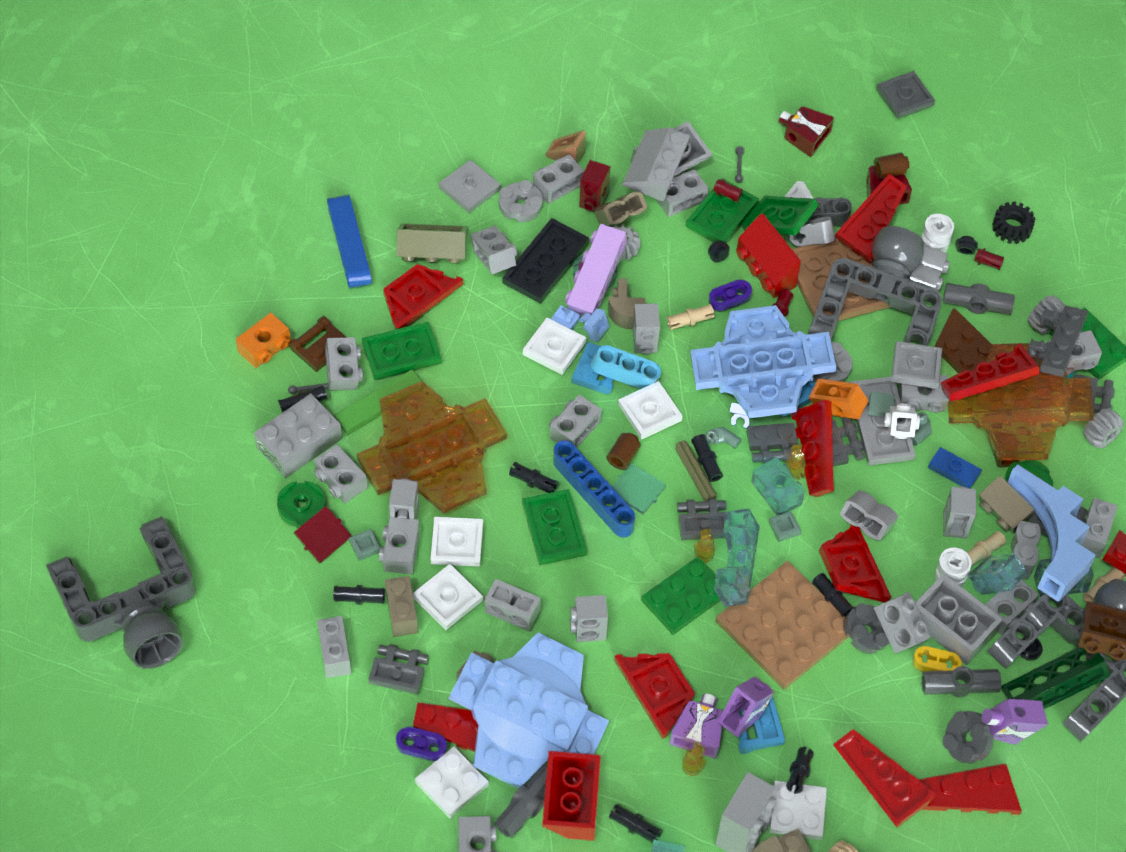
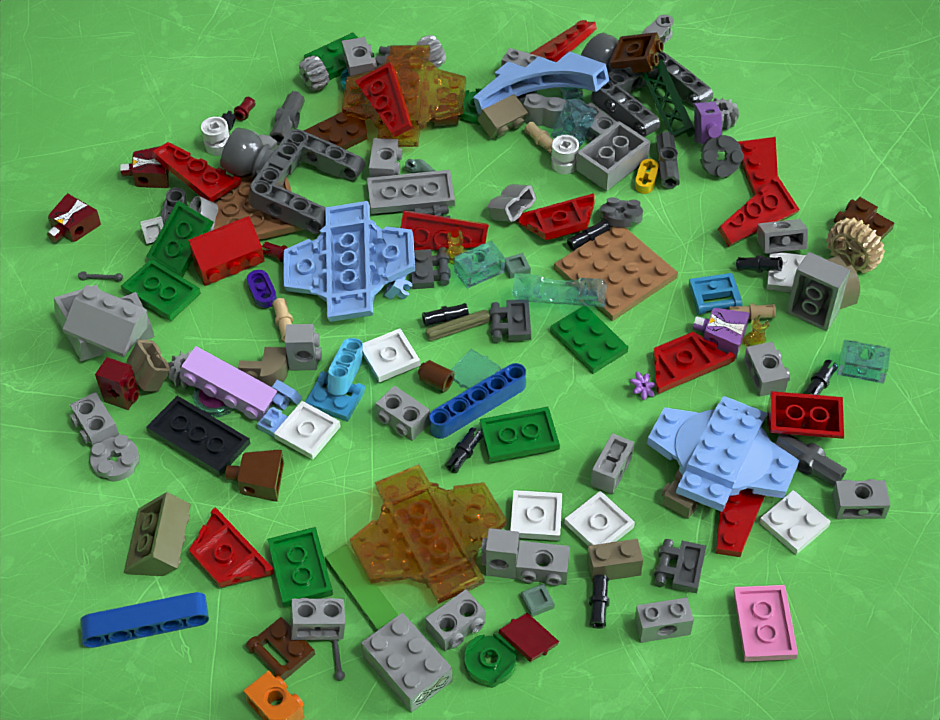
camera: 85 degrees left, 5 degrees down
(319, 393) = (356, 662): black pin -> none
(331, 740) = (765, 623): none -> bright pink plate
(423, 741) = (759, 546): dark purple plate -> none
(469, 186) = (84, 505): light grey plate -> none
(494, 249) = (184, 474): light grey brick -> none
(500, 311) = (259, 474): none -> reddish brown torso
(570, 144) = (54, 411): nougat slope -> none
(589, 618) = (627, 400): light grey brick -> none
(616, 642) = (642, 385): none -> medium lavender plant
(657, 756) = (766, 368): none -> light grey brick
(705, 547) = (542, 321): clear yellow piece -> none
(718, 251) = (208, 294): black plate -> none
(722, 435) = (420, 301): sand green arm -> none
(727, 190) = (138, 280): dark red pin -> none
(731, 761) = (764, 311): none -> tan pin
(752, 698) = (714, 284): medium lavender torso -> none
(845, 397) = (392, 207): orange brick -> none
(845, 798) = (782, 236): none -> light grey brick
(880, 403) = (399, 185): sand green tile -> none
(895, 164) = (140, 152): reddish brown brick -> none
(902, 622) = (621, 184): light grey brick -> none
(905, 94) = (44, 148): dark grey plate -> none
(905, 428) = (424, 166): white brick -> none
(916, 364) = (365, 153): light grey plate -> none
(954, 468) = (459, 150): blue plate -> none
(959, 512) = (512, 142): light grey brick -> none
(1016, 213) = (207, 81): black tyre -> none
(1041, 748) = (729, 112): none -> light grey gear
(1059, 351) = (355, 54): dark grey hinge -> none

